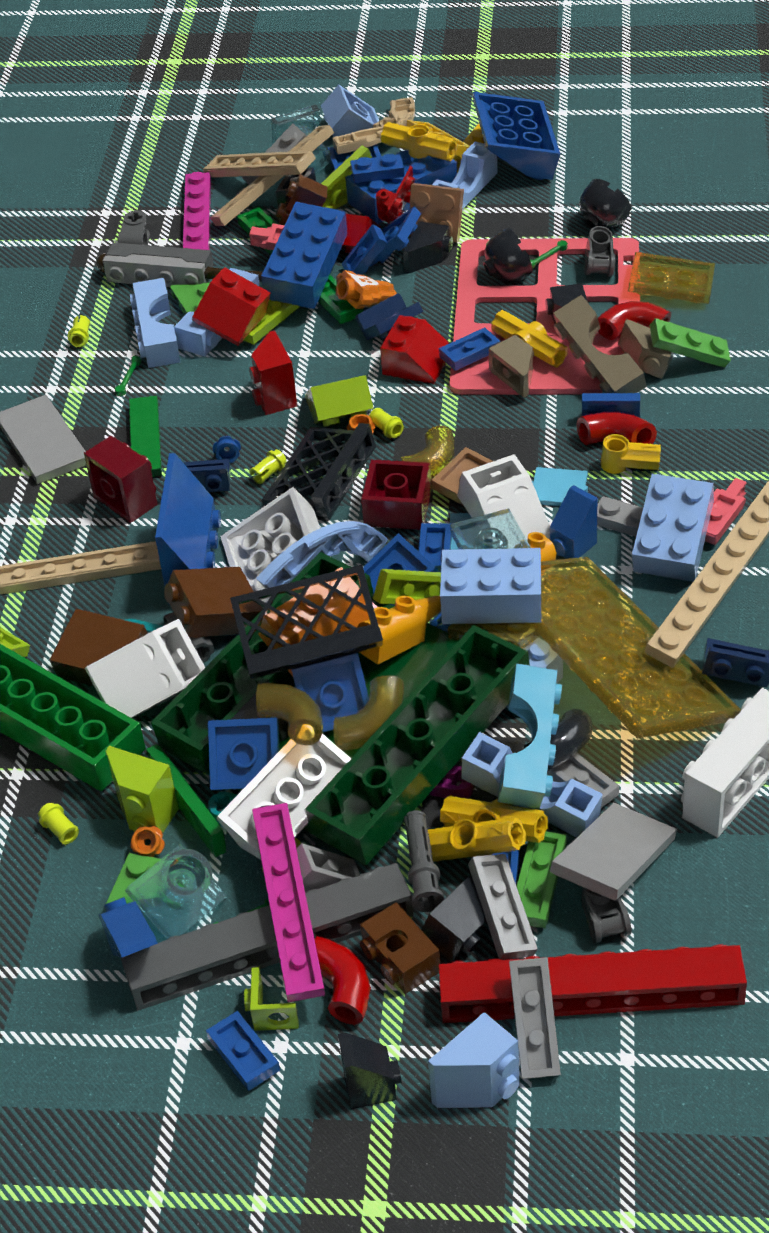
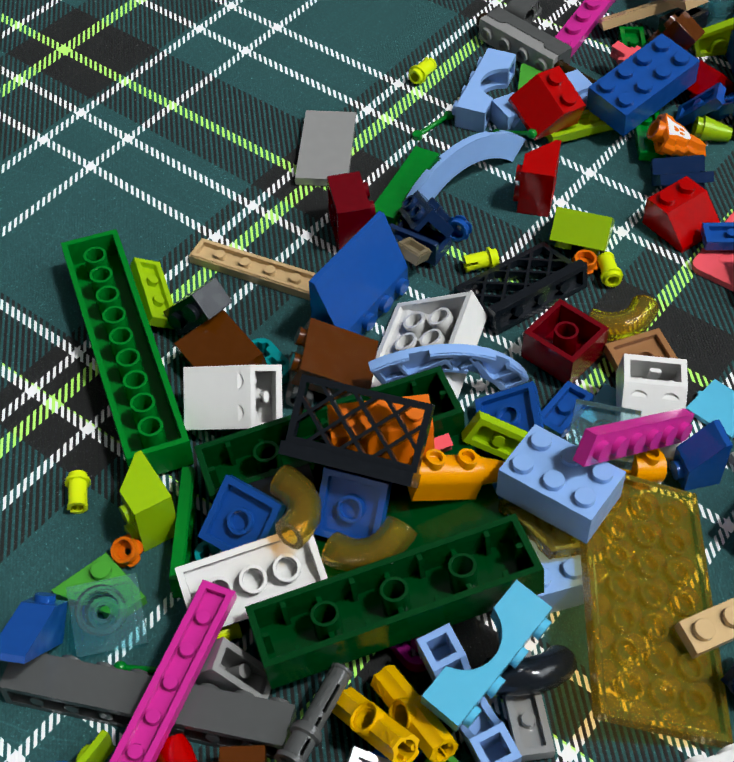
camera: 30 degrees right, 5 degrees up
(47, 619) = (197, 307): none -> black brick
(192, 448) = (419, 210): none -> dark blue bracket
(193, 376) = (464, 154): none -> light blue tile
(211, 481) = (414, 251): none -> dark tan tile
(233, 340) = (531, 133): none -> green hinge
(386, 270) = (711, 130): none -> lime cone
(524, 522) = (633, 436): none -> dark pink plate

